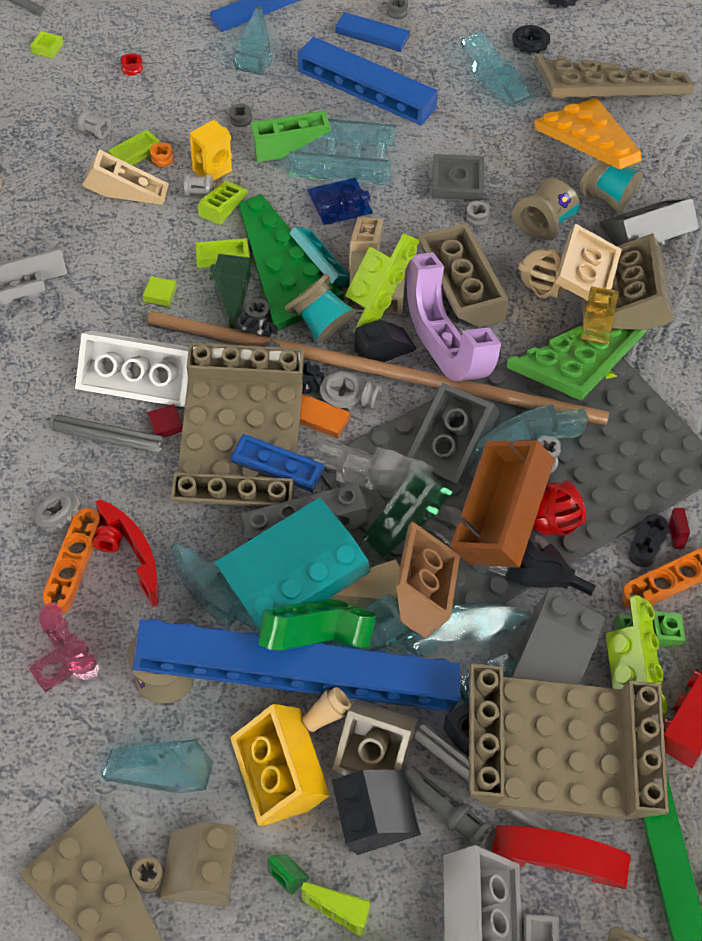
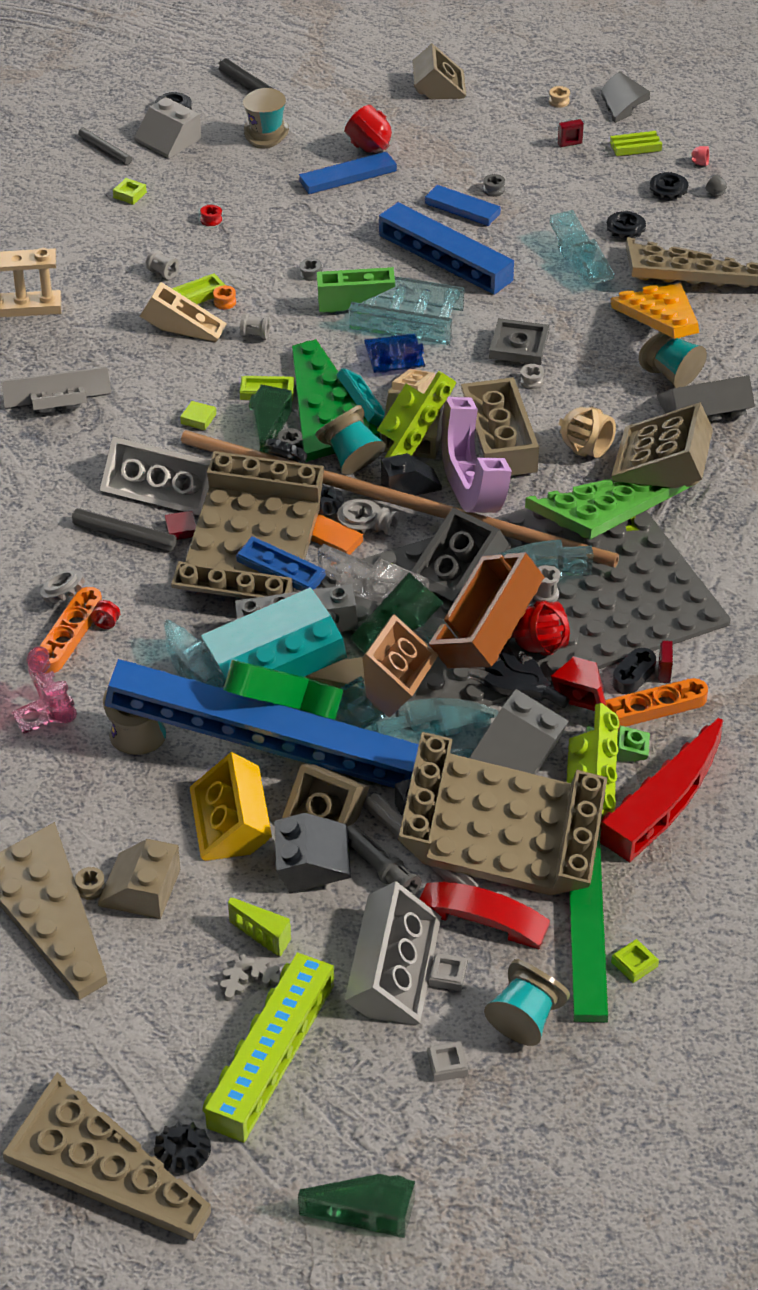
camera: 10 degrees right, 10 degrees down
(146, 573) = (132, 617): red slope -> none
(161, 766) = (122, 799): clear light blue slope -> none
(211, 150) = (272, 294): yellow brick -> none
(219, 214) = (271, 347): lime slope -> none
(253, 49) = (335, 210): clear light blue slope -> none
(286, 872) = (216, 894): green slope -> none
(328, 708) = (282, 766): tan cone -> none
(546, 209) = (601, 374): dark tan hat -> none
(587, 262) = (625, 423): tan plate -> none
(600, 314) = (624, 464): clear yellow slope -> none
(605, 566) = (580, 682): none -> red slope

